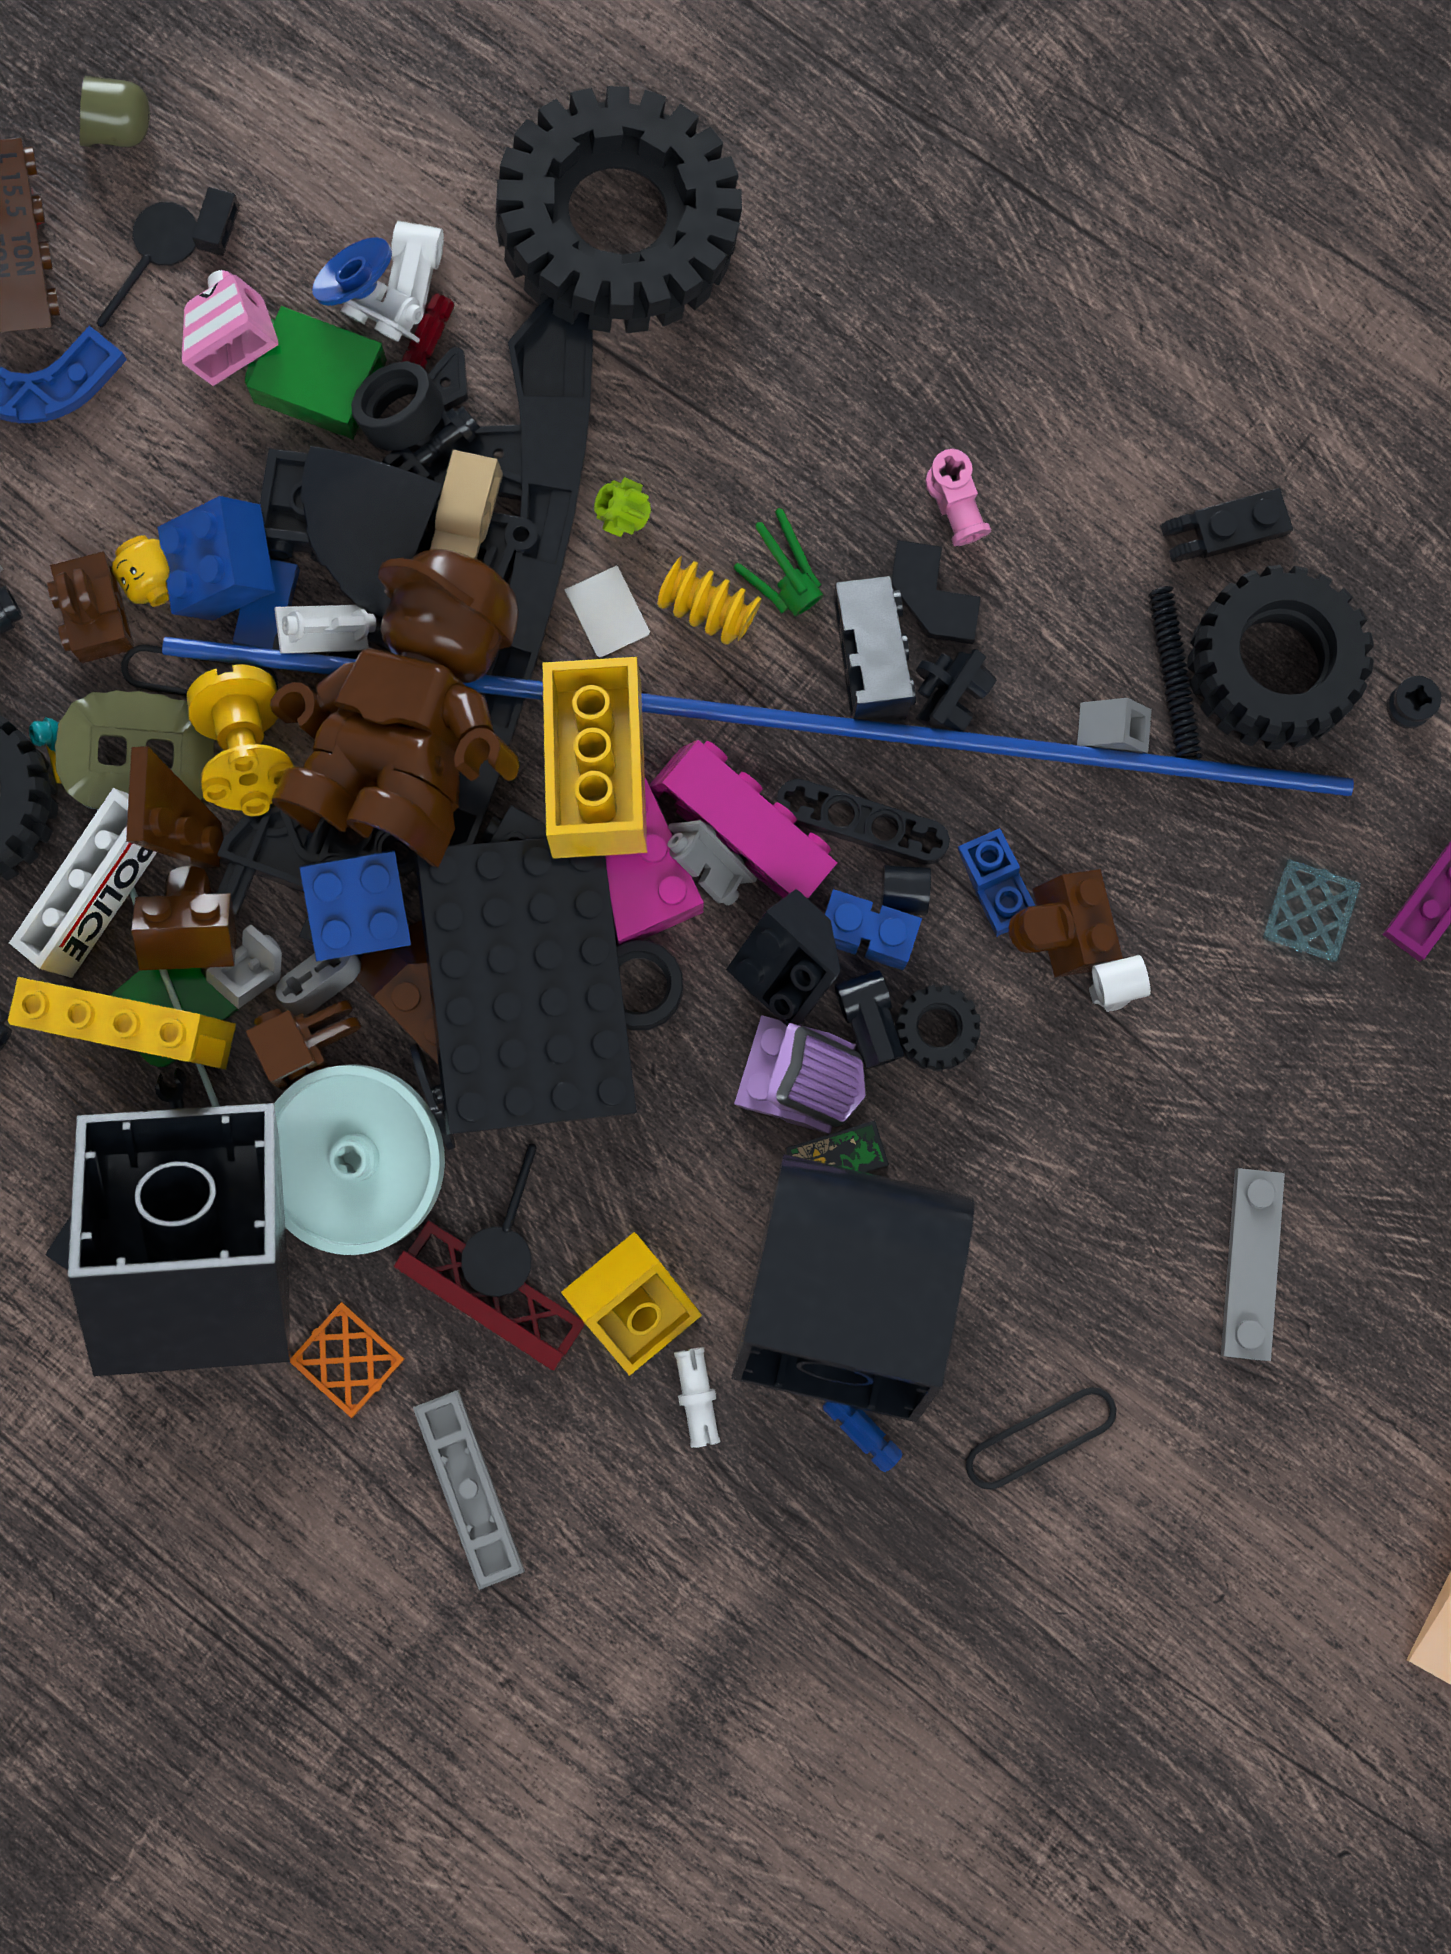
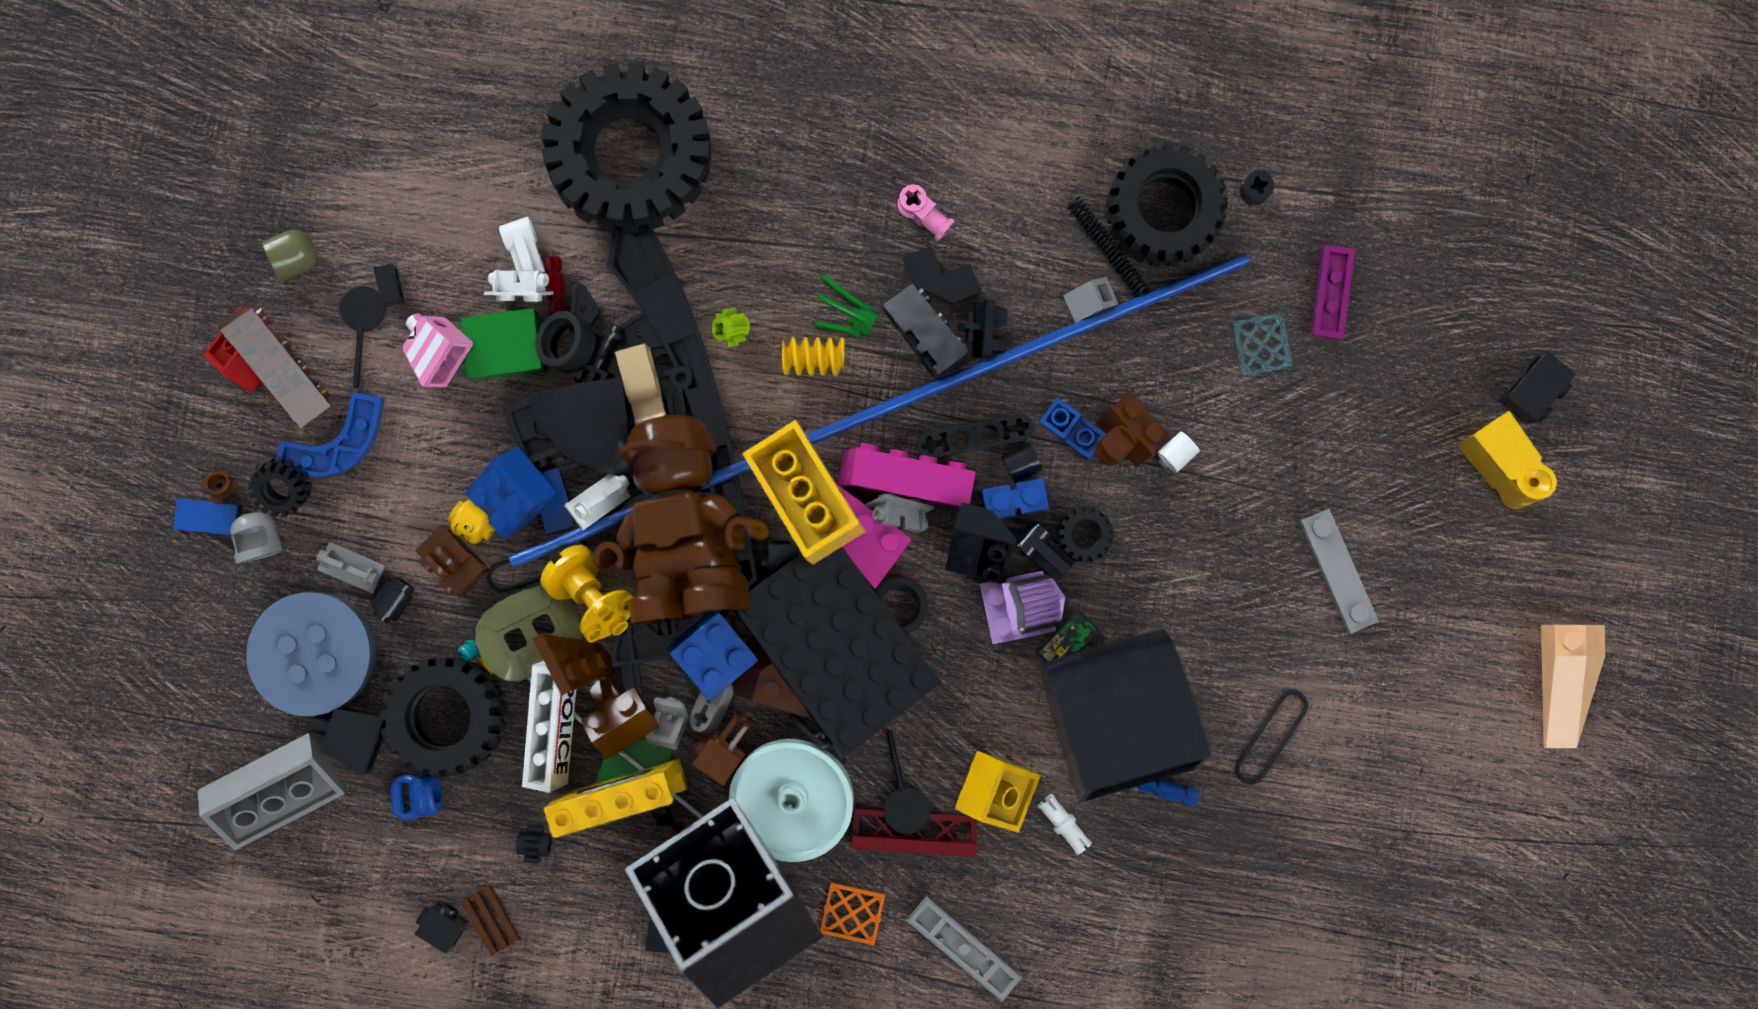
camera: 20 degrees left, 5 degrees up
(352, 272) = (492, 275): blue dish -> none
(607, 611) = (755, 393): white sticker -> none
(1230, 525) = (1093, 138): black hinge -> none

